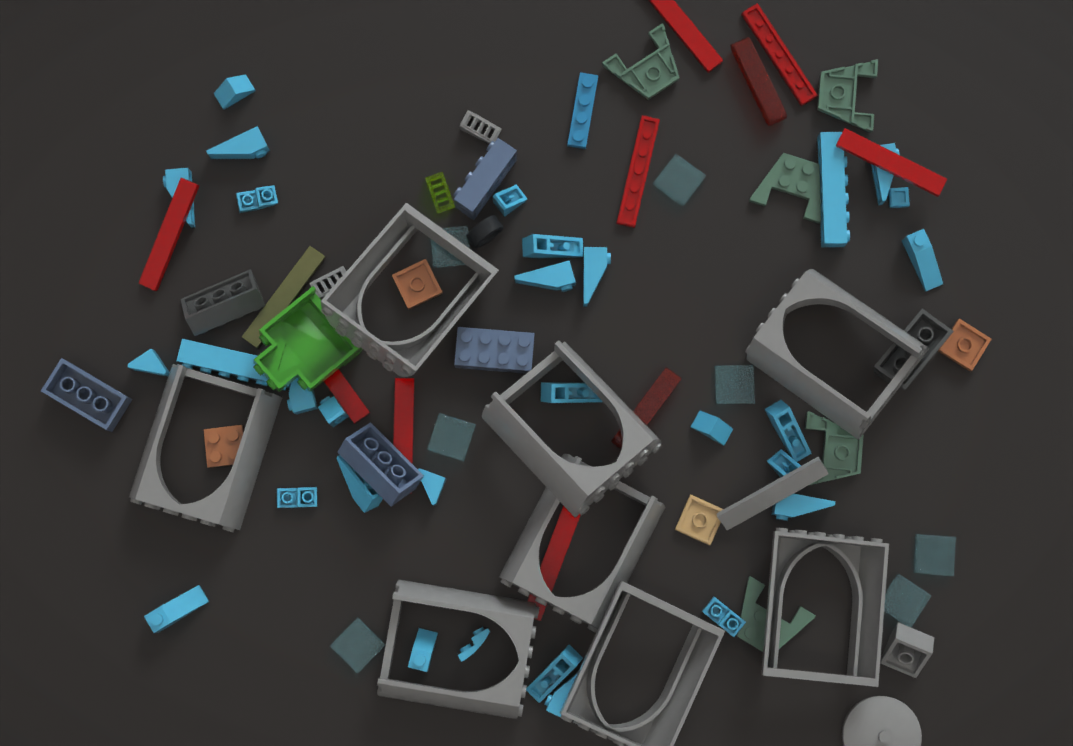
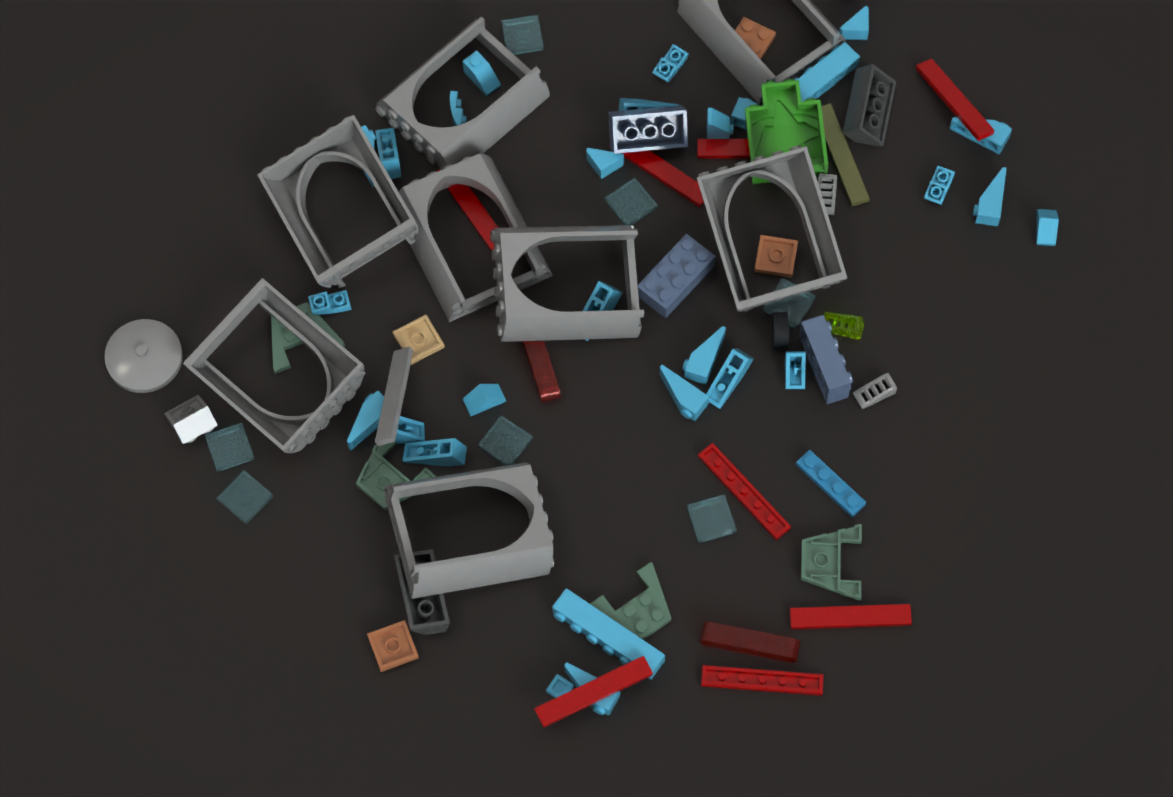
camera: 130 degrees right, 15 degrees down
(838, 93) = (690, 703): sand green wing -> none
(923, 259) = (491, 665): medium azure slope -> none

